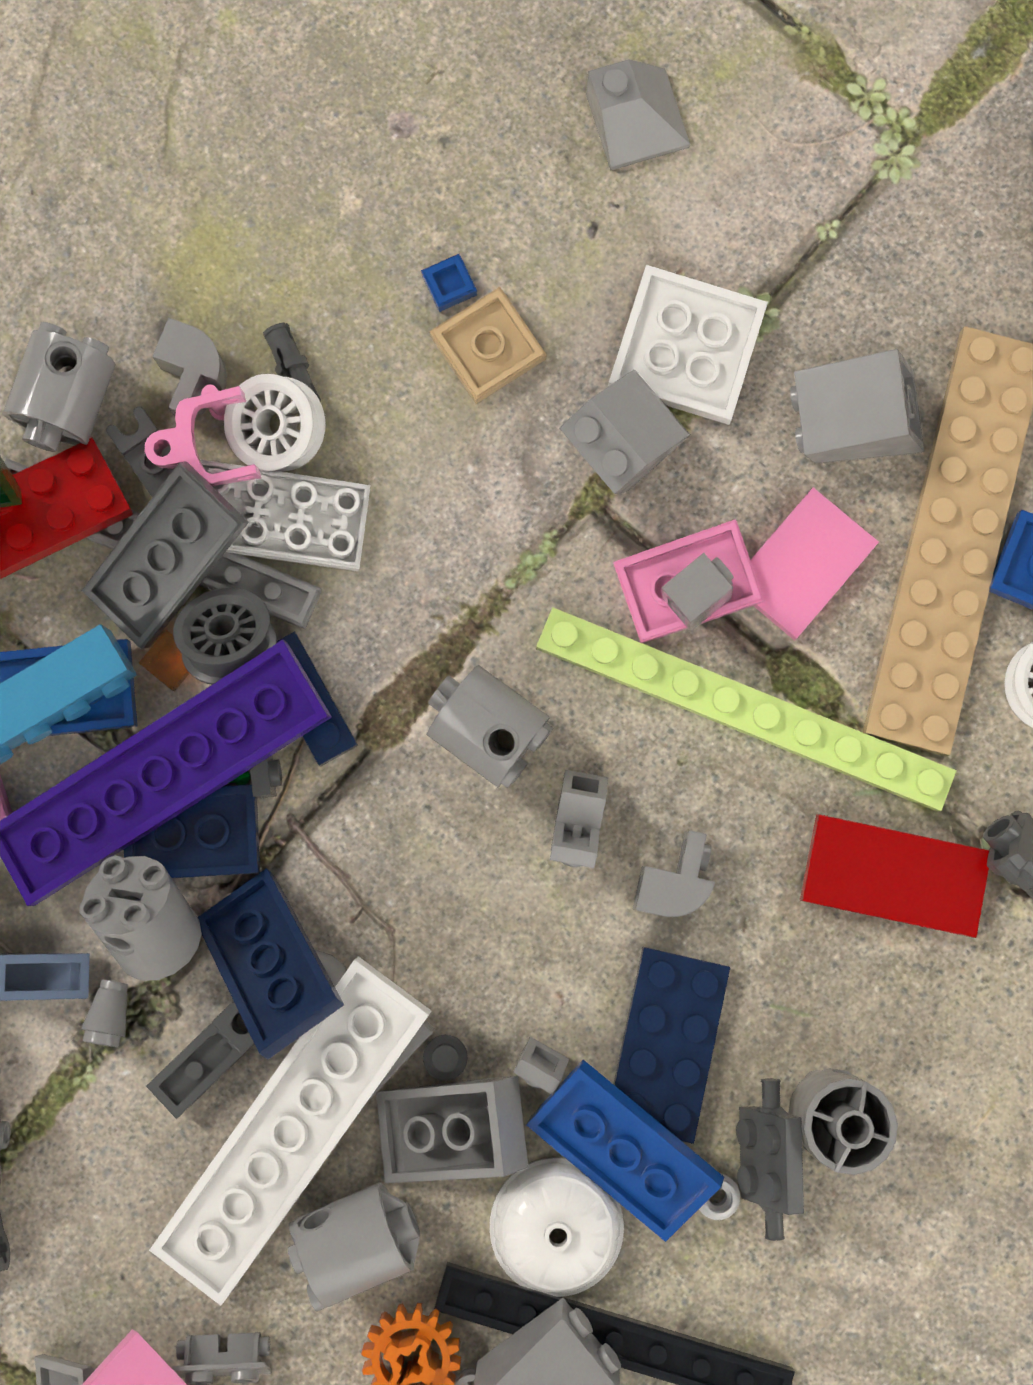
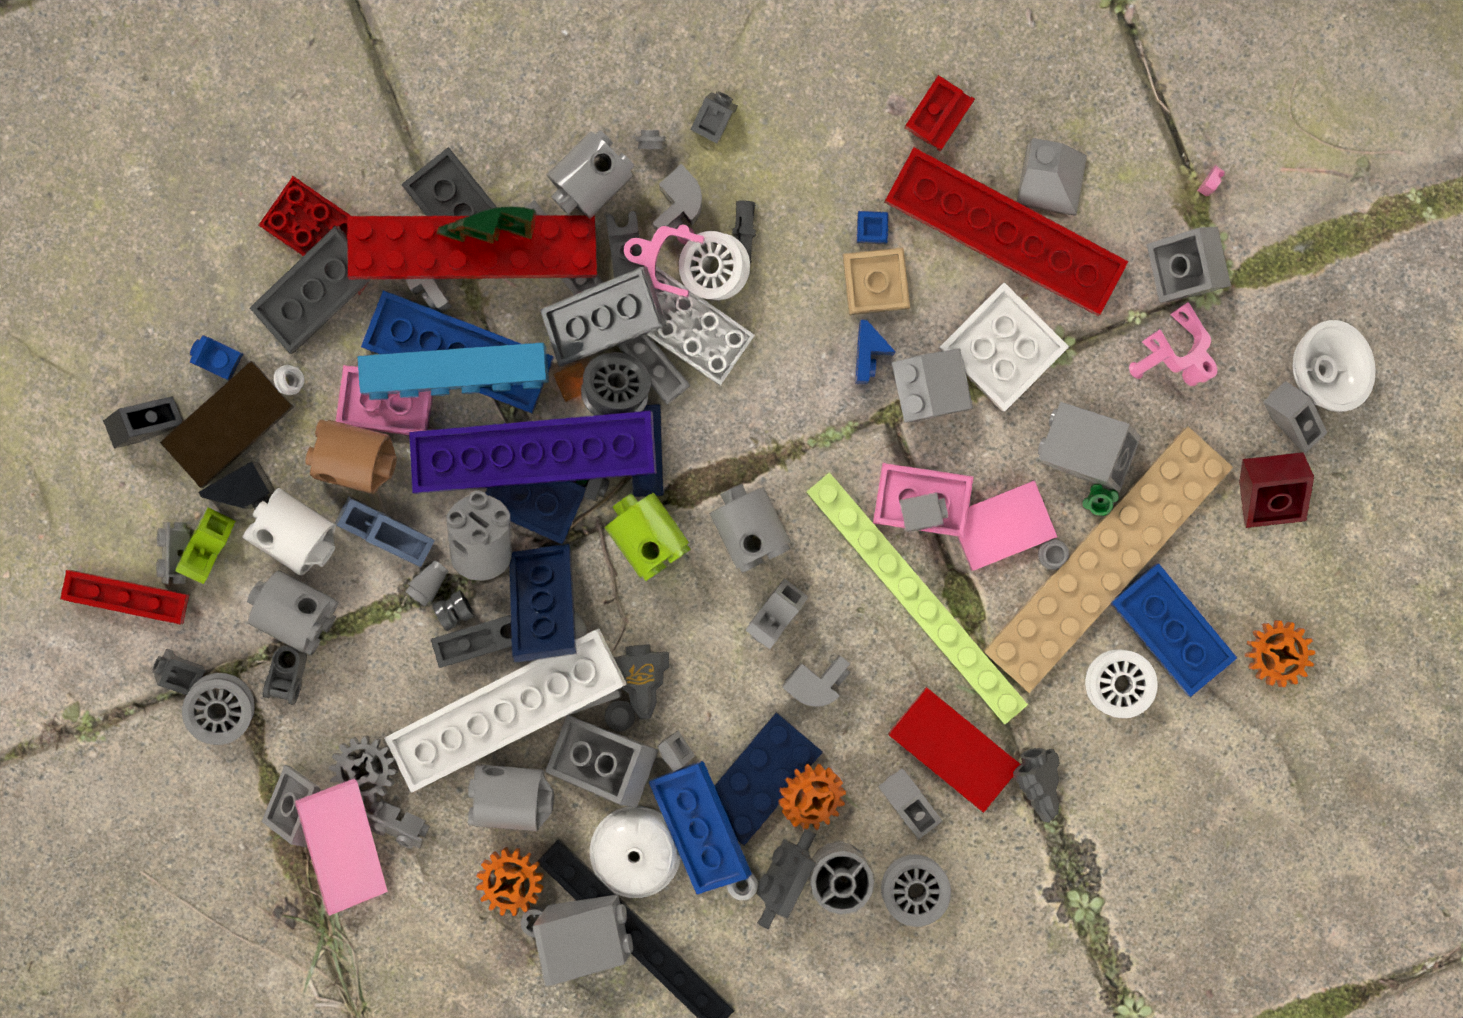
camera: 30 degrees right, 5 degrees up
(116, 312) = (650, 139): none -> light grey plate
(143, 1288) = (375, 774): none -> light grey gear
(158, 1032) = (453, 610): none -> dark grey wheel
(182, 244) = (714, 116): none -> dark grey bracket
(344, 802) = (640, 526): none -> lime cylinder
(449, 990) = (643, 675): none -> dark grey rock
(459, 105) = (939, 113): none -> red plate
(520, 422) = (869, 343): none -> blue slope
(616, 205) = (1006, 232): none -> red plate
(747, 1033) = (812, 797): none -> orange gear
(832, 24) = (1212, 181): none -> bright pink tile
(858, 132) = (1188, 264): none -> light grey slope
(876, 974) = (910, 803): none -> light grey slope
(885, 566) = (1053, 554): none -> light grey plate
(918, 469) = (1103, 507): none -> green plate
(936, 241) = (1197, 364): none -> bright pink piece
(979, 1066) = (939, 904): none -> light grey wheel

